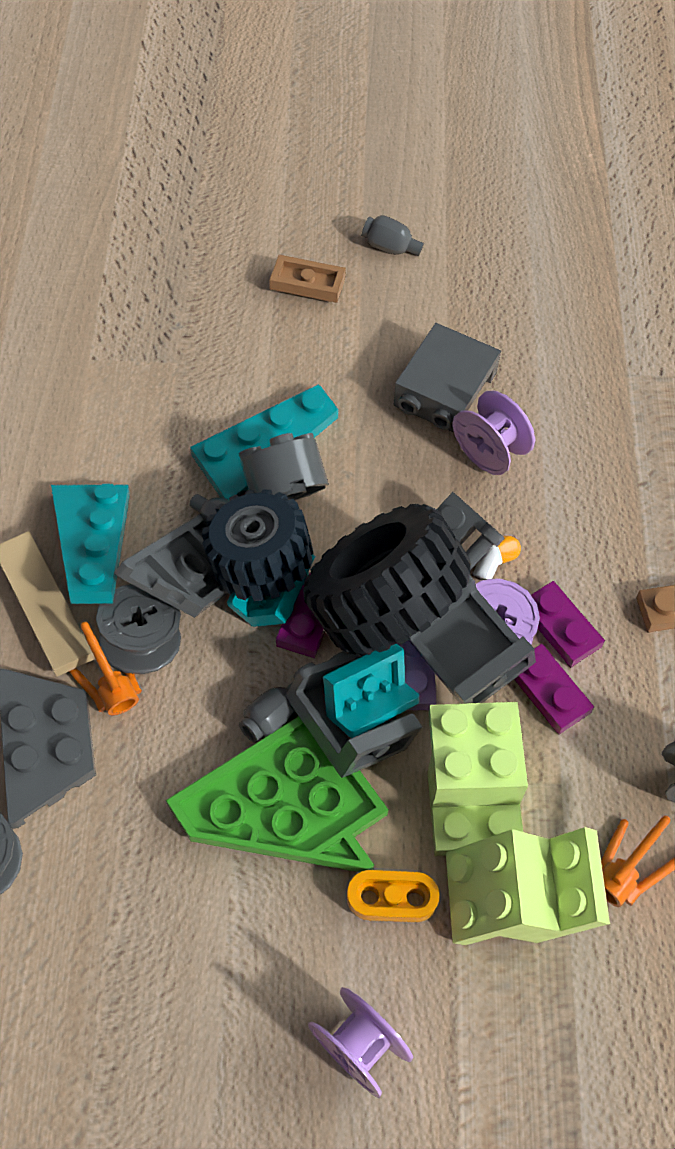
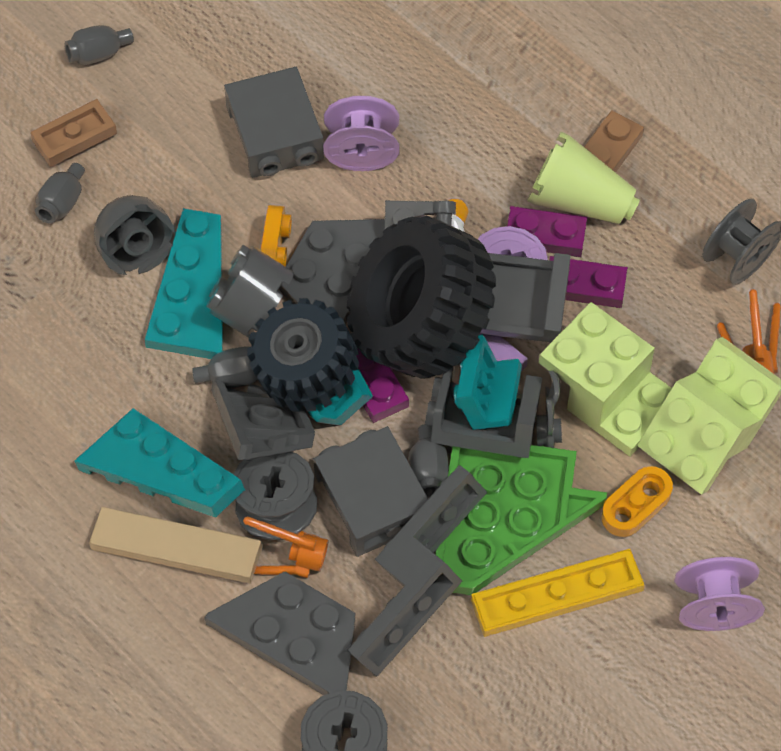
camera: 45 degrees left, 0 degrees up
(160, 781) = (423, 575): none -> dark grey bracket
(207, 691) = (370, 487): none -> dark grey panel
(253, 309) = (59, 194): none -> dark grey plant
(255, 905) = (557, 592): none -> yellow tile
(259, 369) = (133, 234): none -> dark grey cylinder
(352, 454) = (276, 227): none -> light orange plate
(359, 500) = (329, 260): none -> dark grey wing
(388, 768) = (549, 429): none -> dark grey plate
(624, 610) = (582, 184): none -> yellowish green cone

